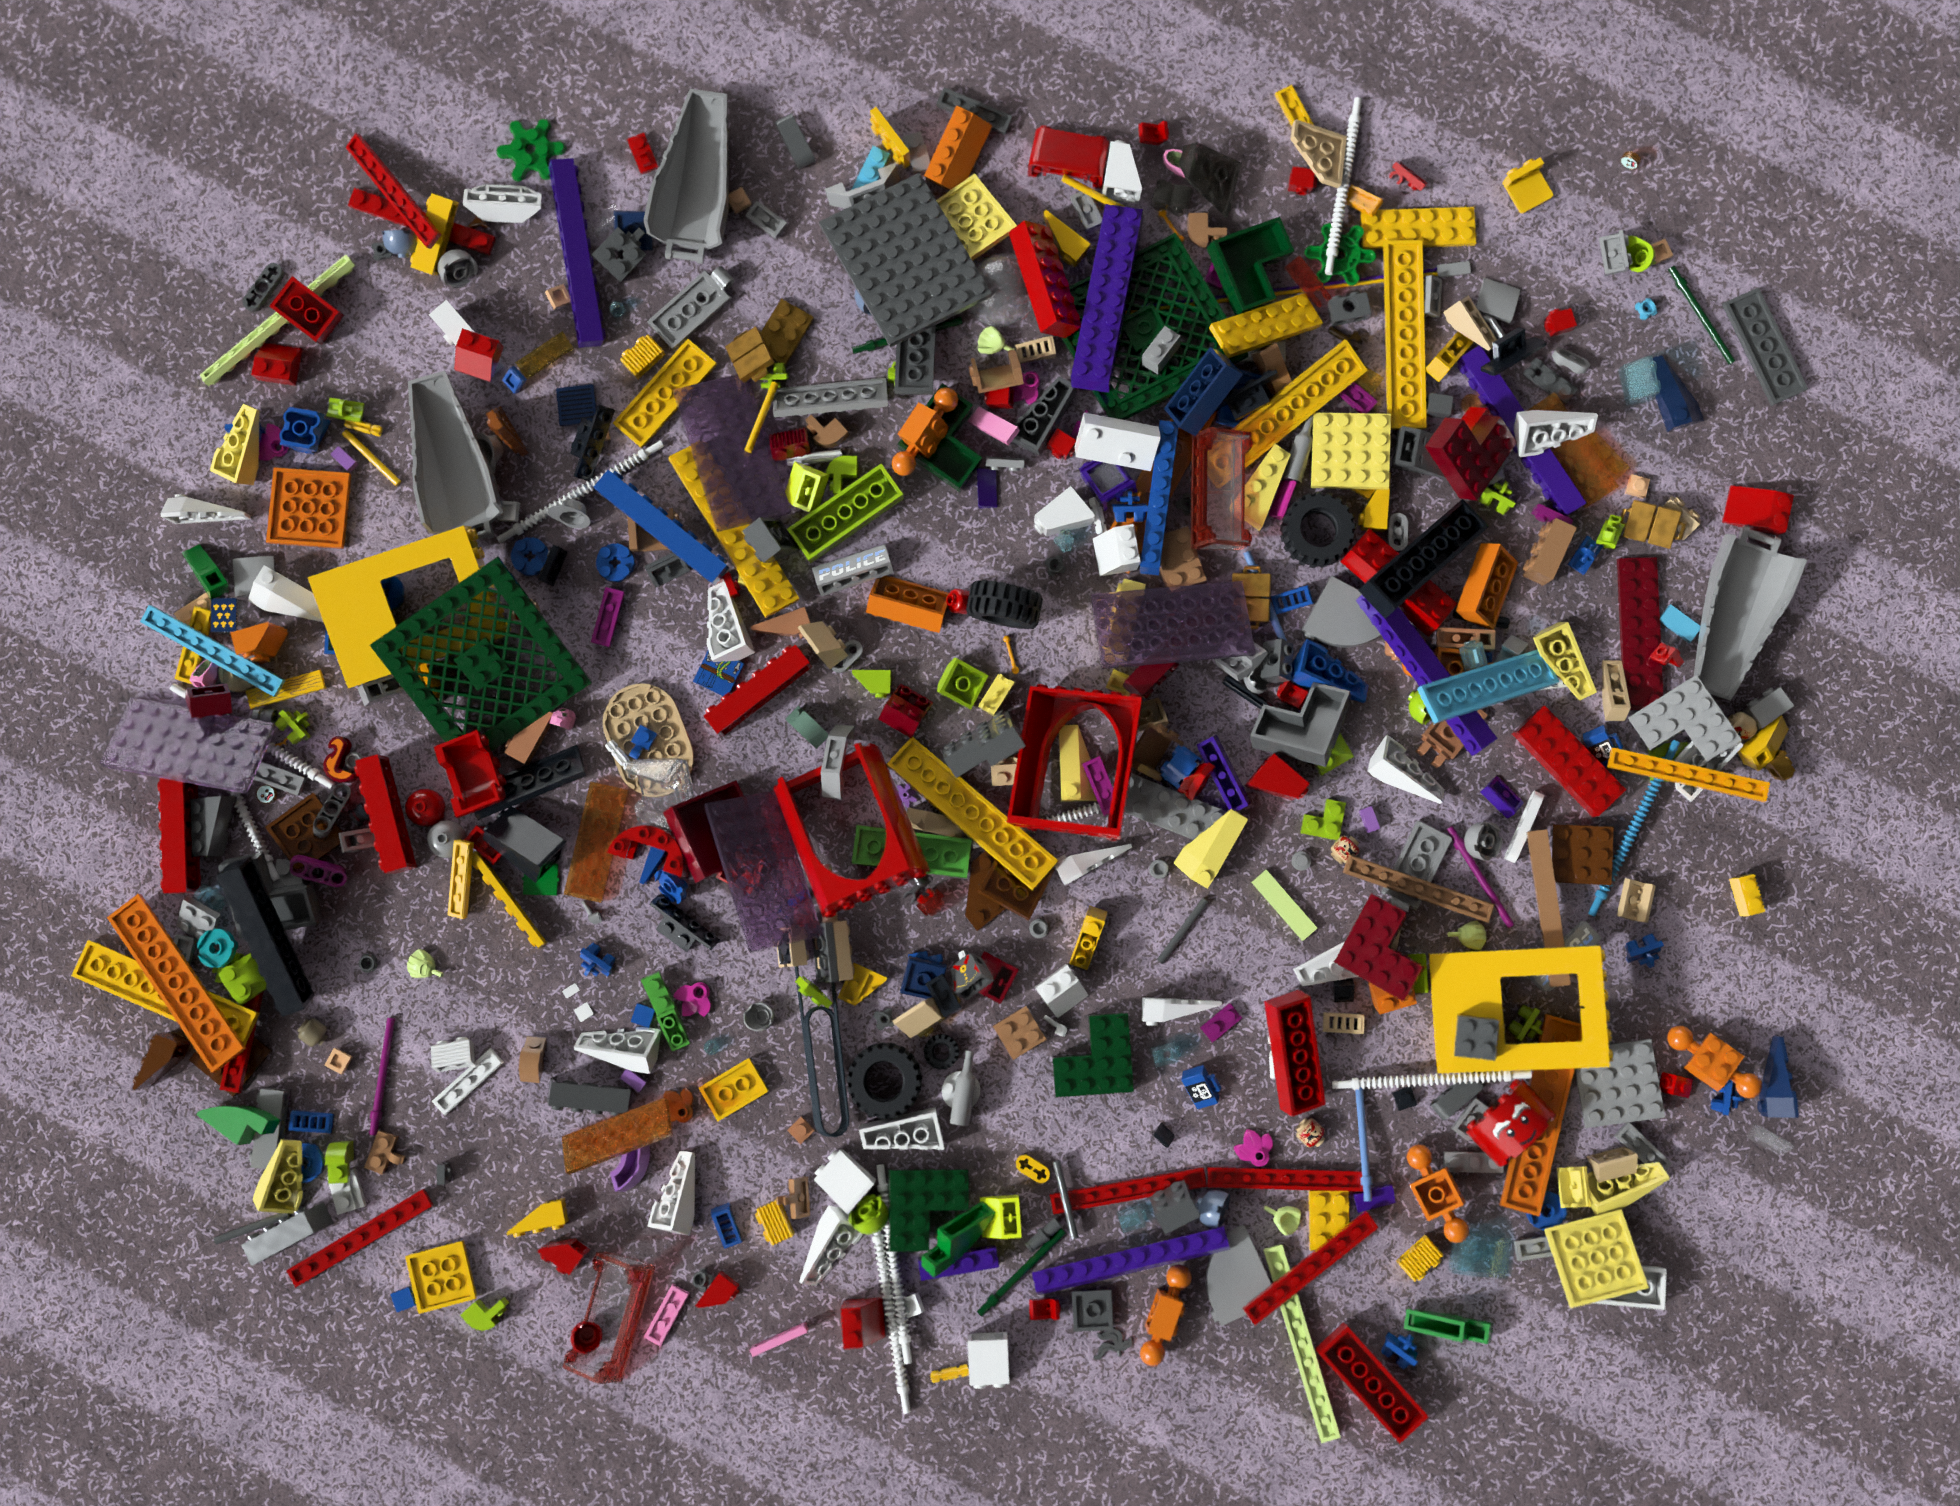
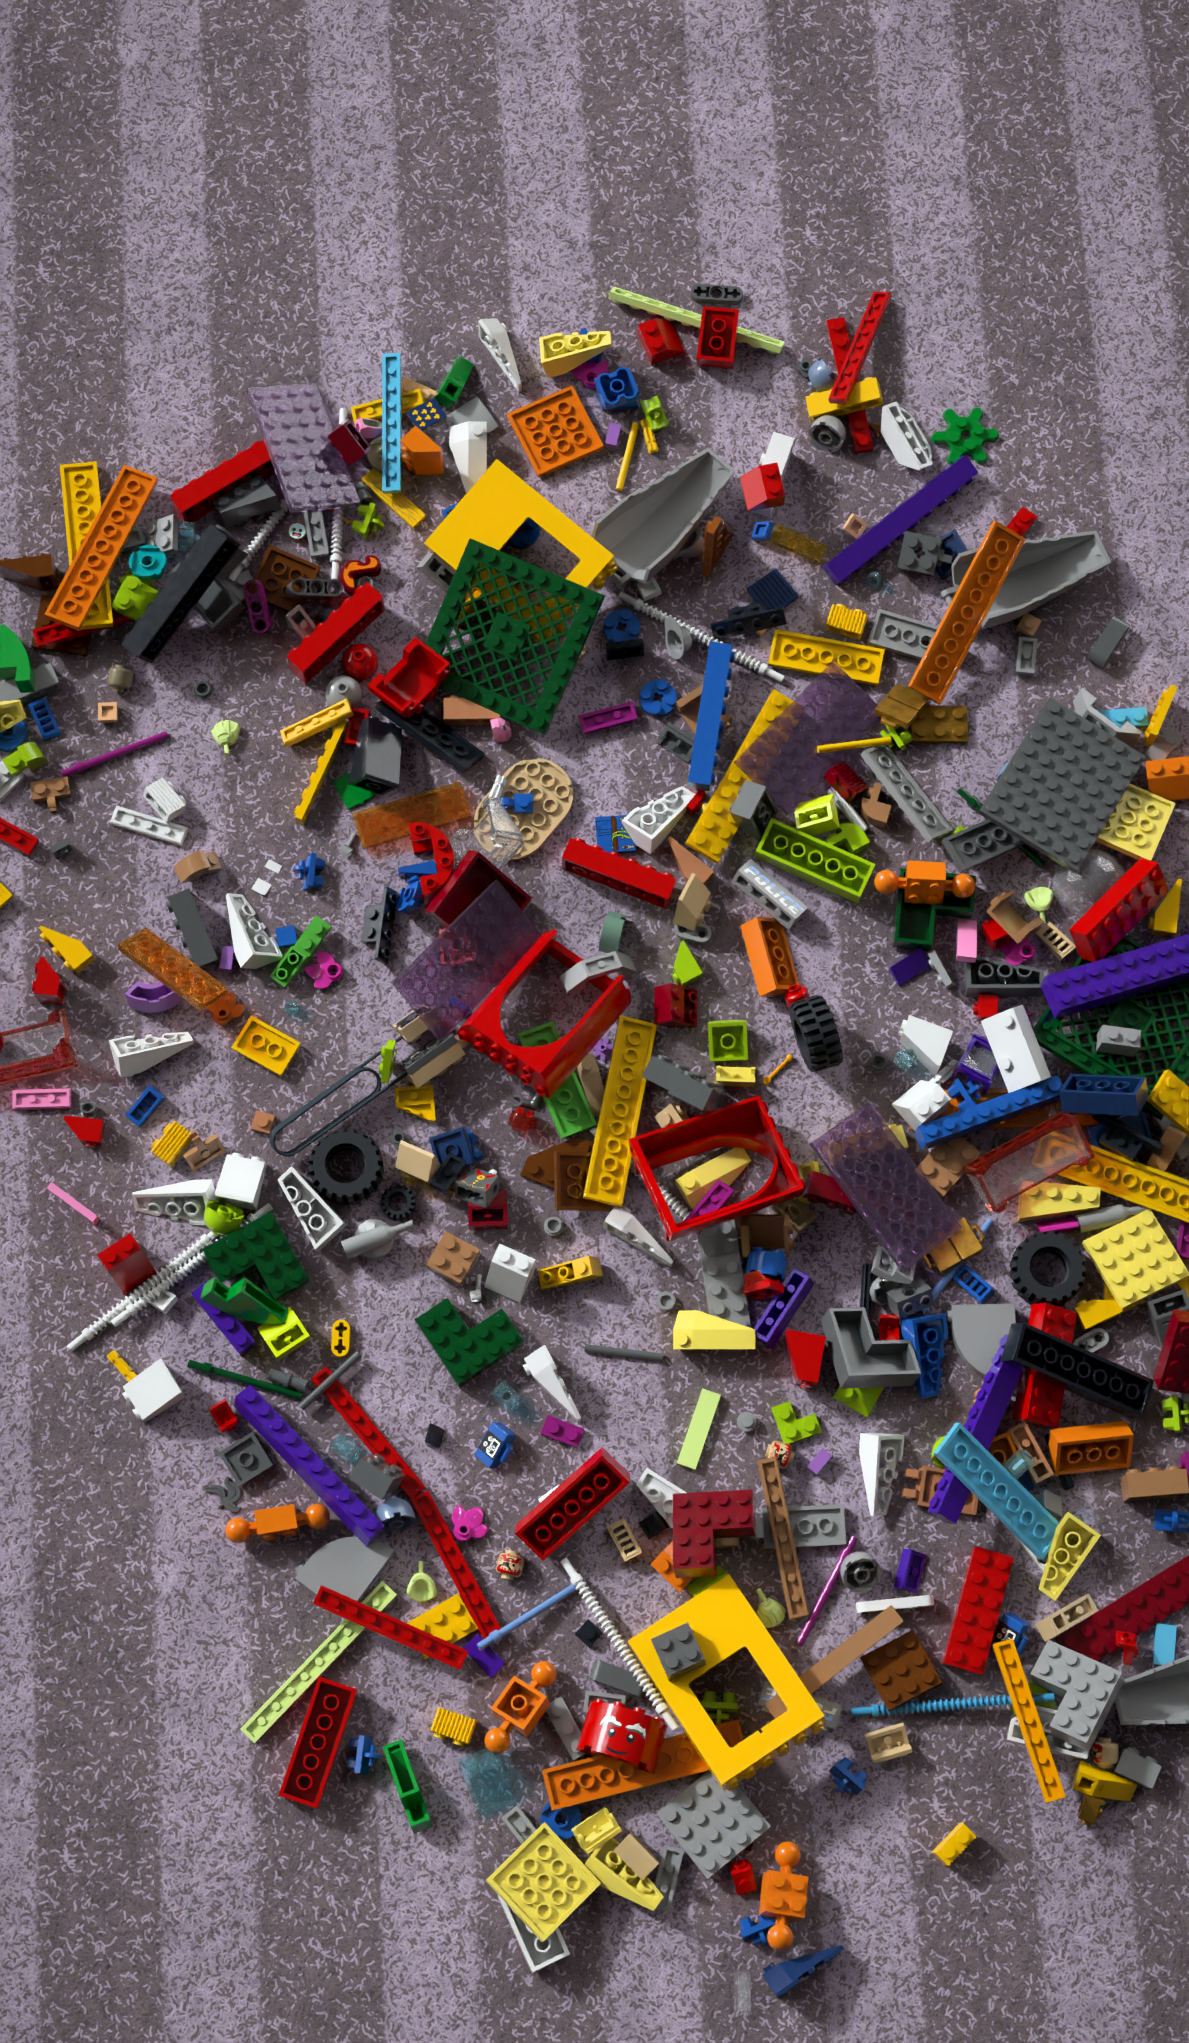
camera: 55 degrees right, 10 degrees down
(699, 245) = (966, 612): none -> orange plate
(759, 1017) = (340, 1031): light grey hair -> none

